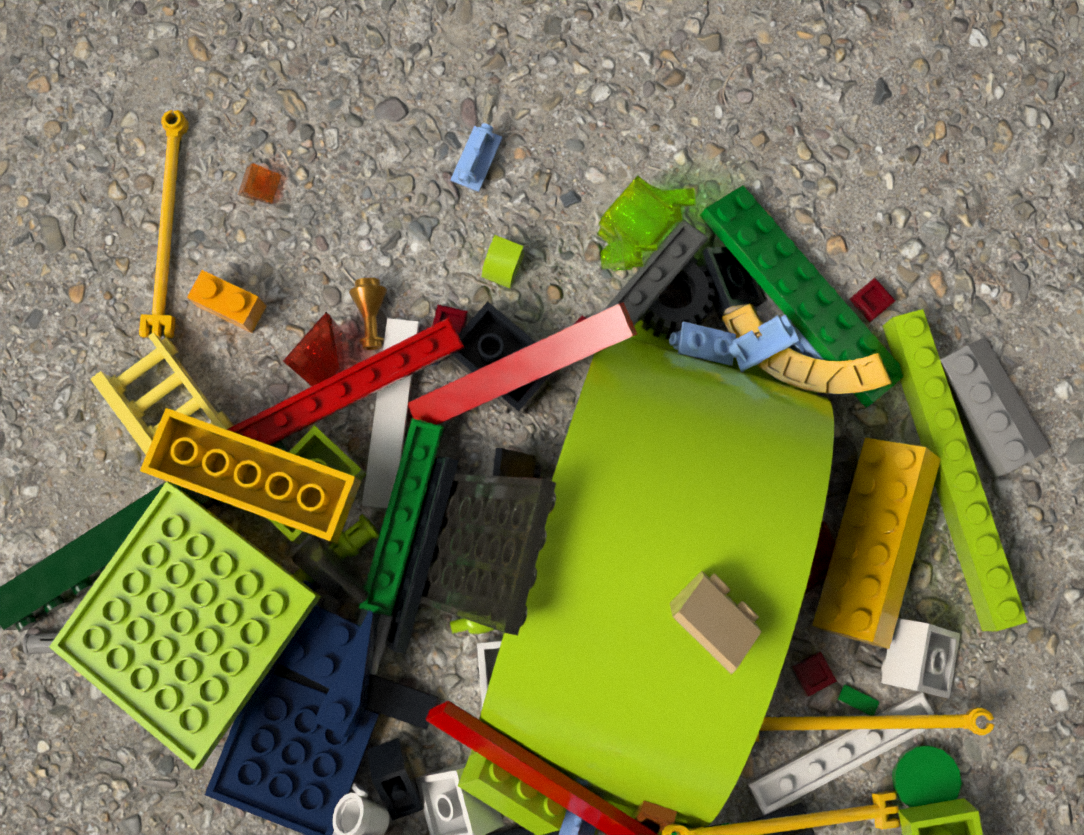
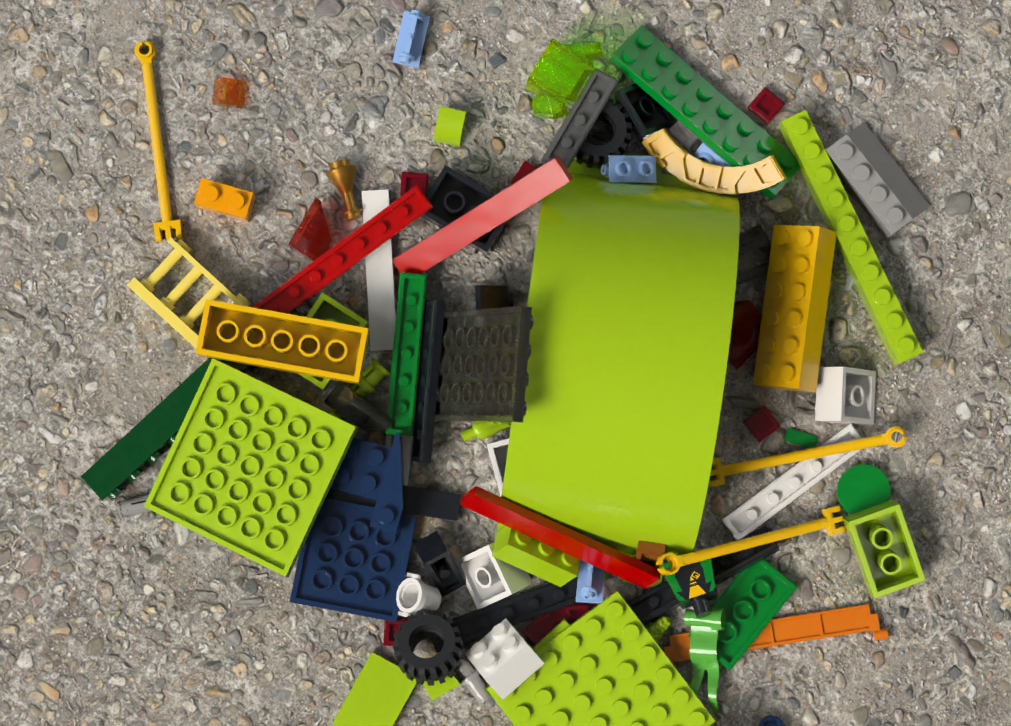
camera: 15 degrees left, 5 degrees up
(716, 620) = (664, 386): tan slope -> none
(776, 336) = (686, 153): light blue hinge -> none

